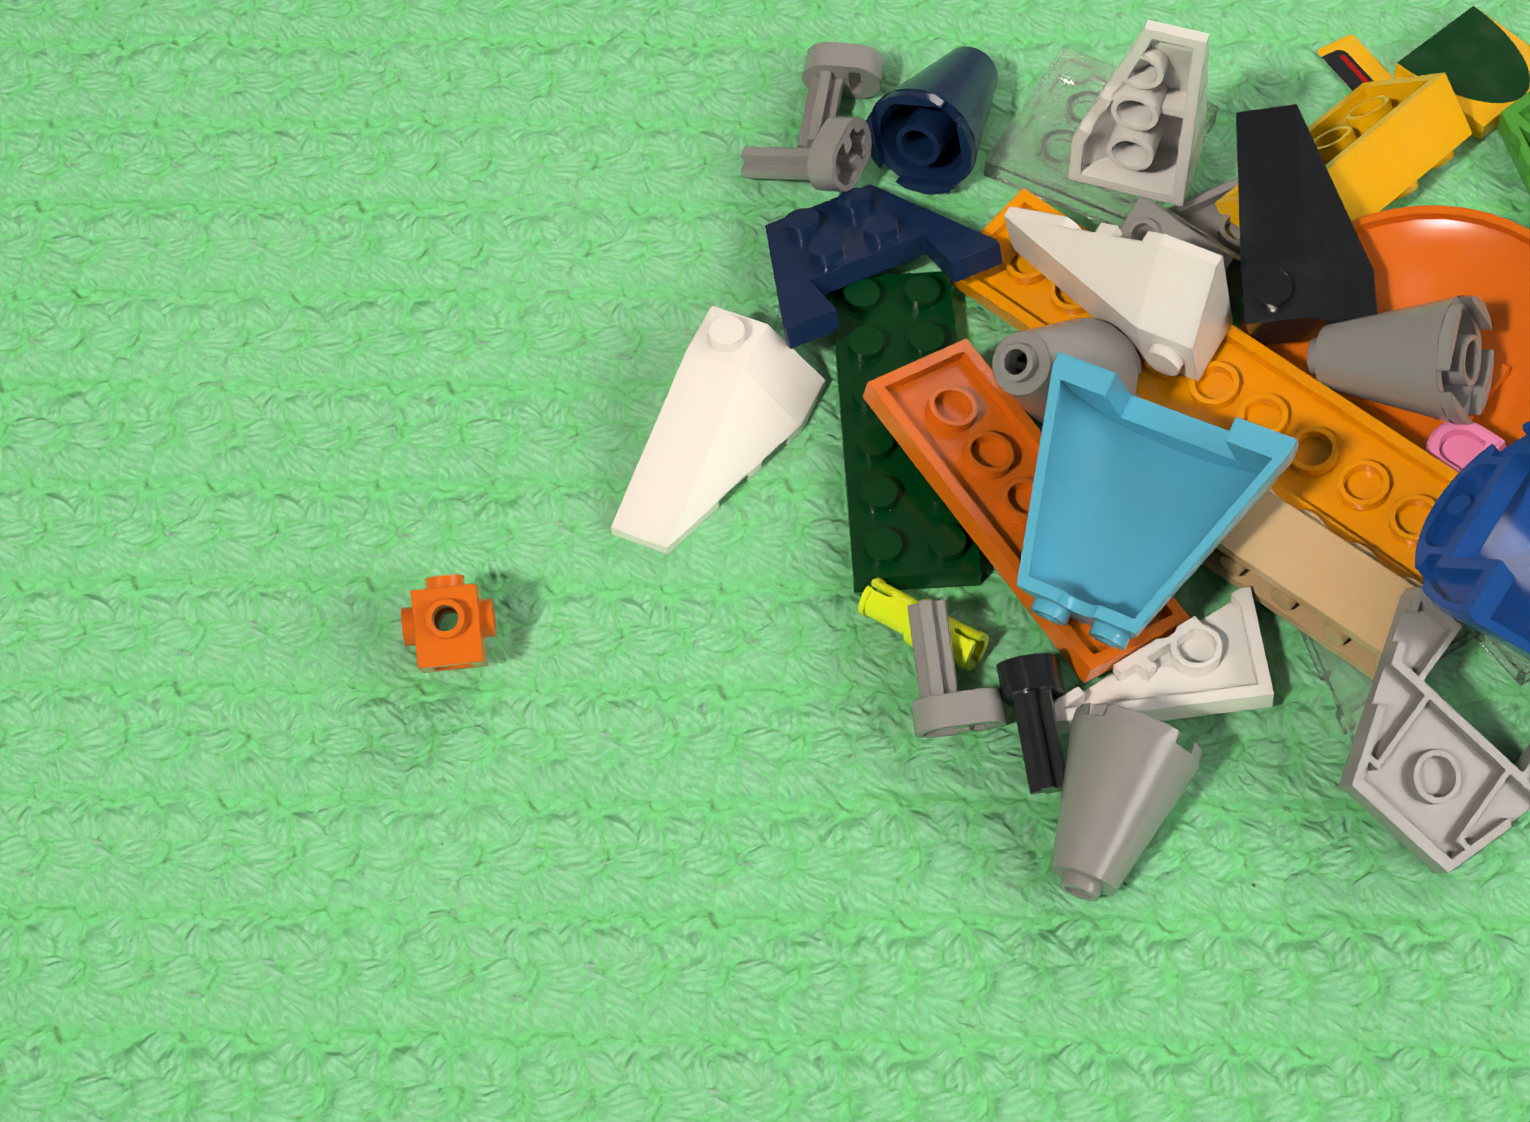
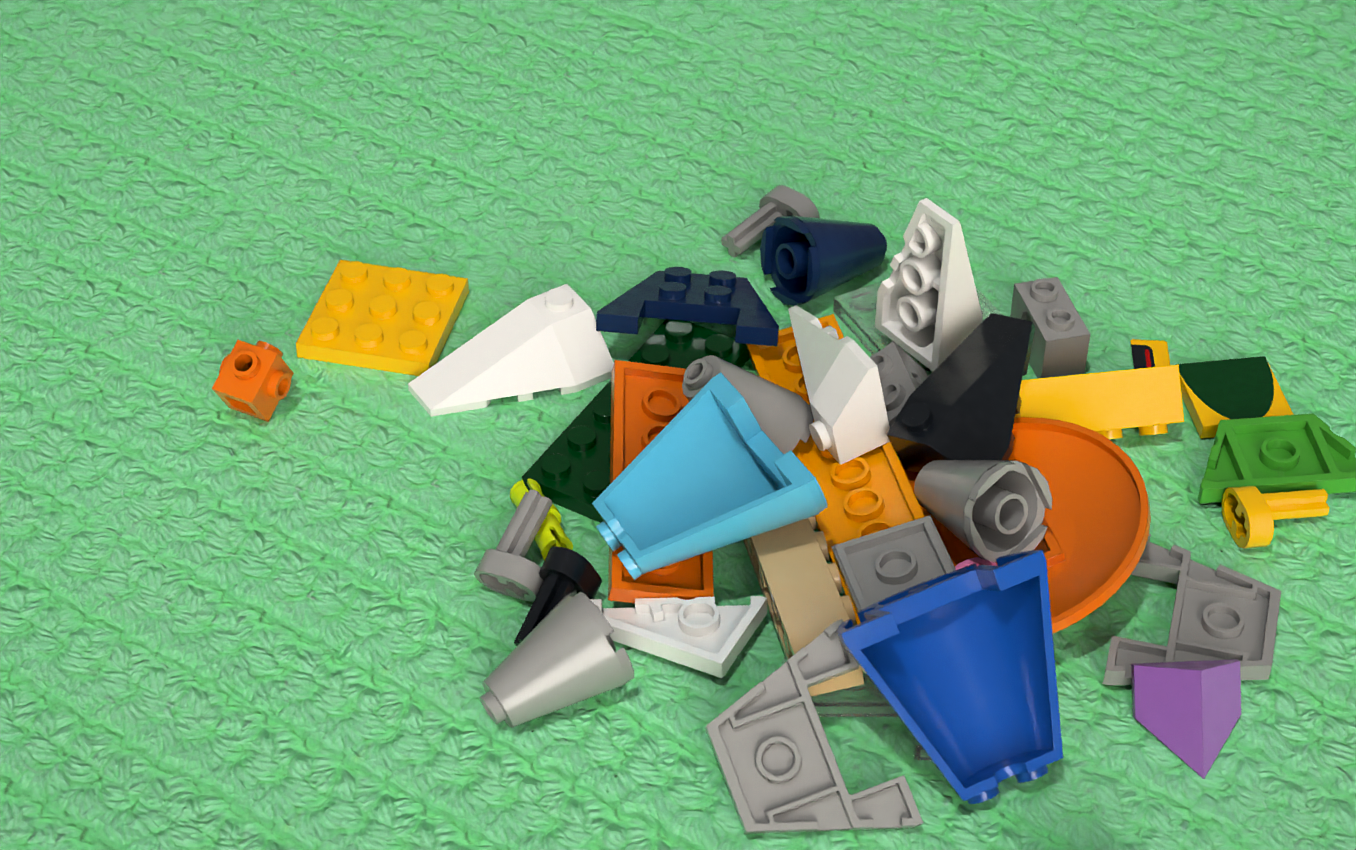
camera: 30 degrees right, 15 degrees down
(503, 455) = (383, 318): none -> yellow plate
(829, 164) = (717, 244): light grey piece -> none
(1251, 76) = (1060, 333): none -> light grey brick
(1378, 484) = (891, 561): none -> light grey tile

